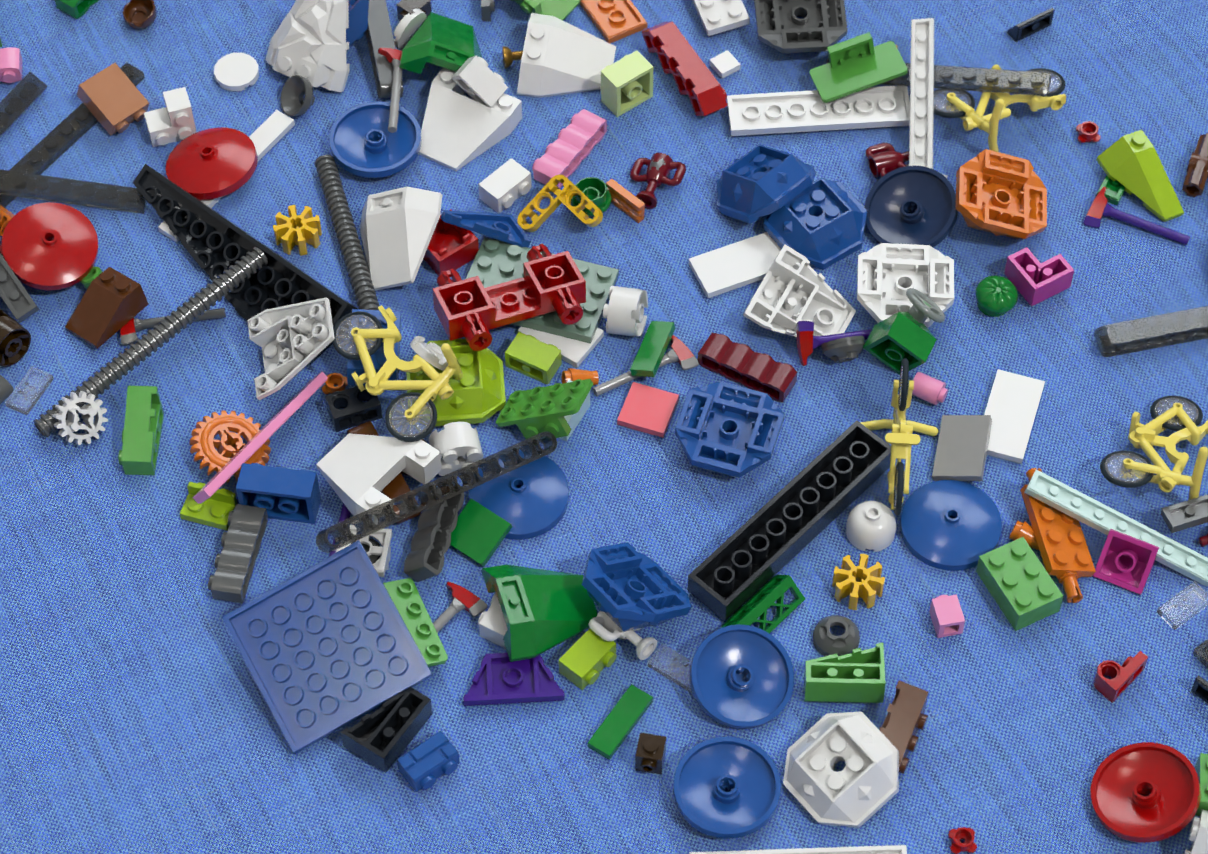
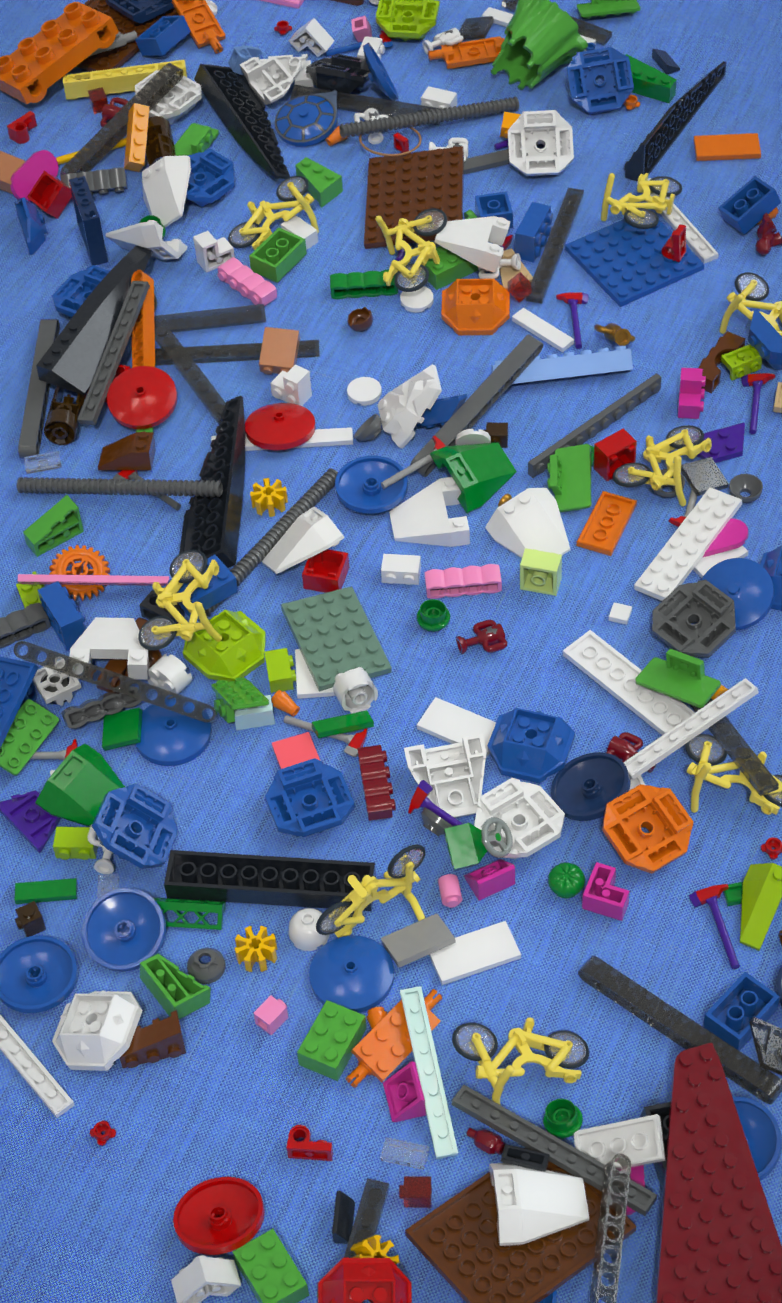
camera: 55 degrees right, 5 degrees down
(72, 423) = (45, 490): white gear -> none
(289, 341) = (179, 536): white wedge -> none
(429, 352) = (215, 610): white tile -> none
(480, 81) = (457, 498): white brick -> none
(495, 225) = (361, 585): blue wing -> none
(547, 286) = (275, 610): red piece -> none
(563, 196) = (414, 594): yellow beam -> none
(626, 201) = (449, 634): orange tile -> none
(688, 69) = (586, 595): brick -> none
(761, 183) = (530, 691): blue piece -> none
(942, 355) = (491, 878): none -> dark pink slope

